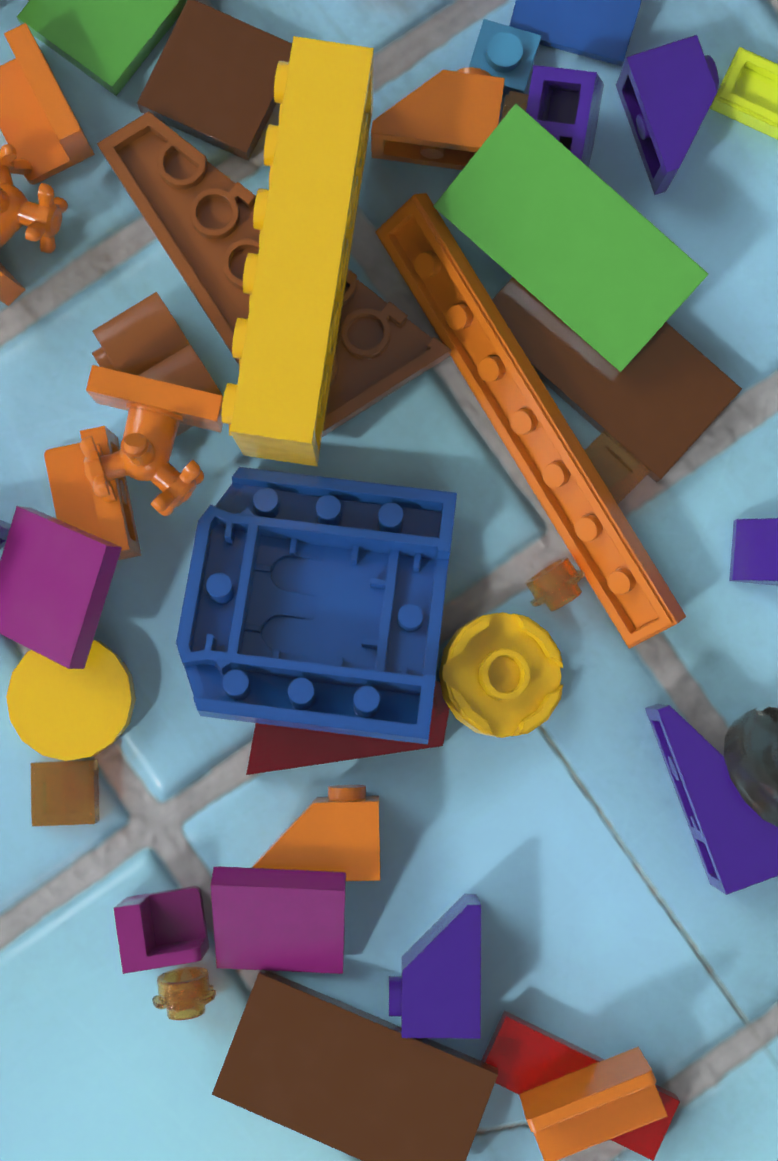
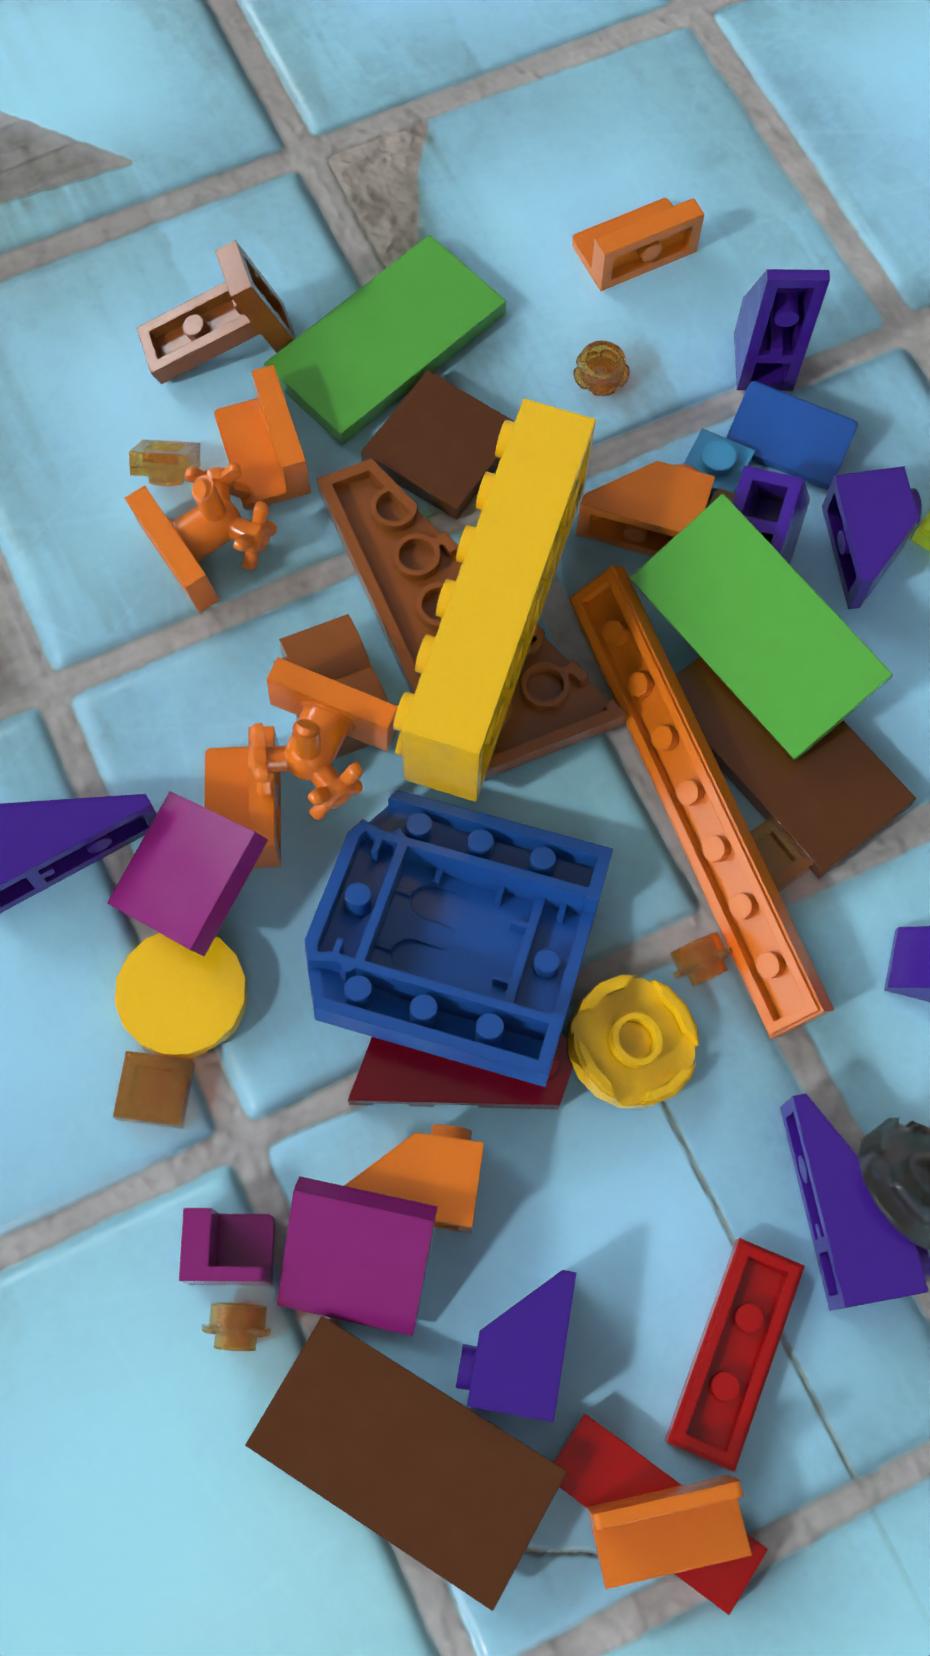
camera: 10 degrees right, 15 degrees down
(631, 939) = (734, 1354): none -> red tile

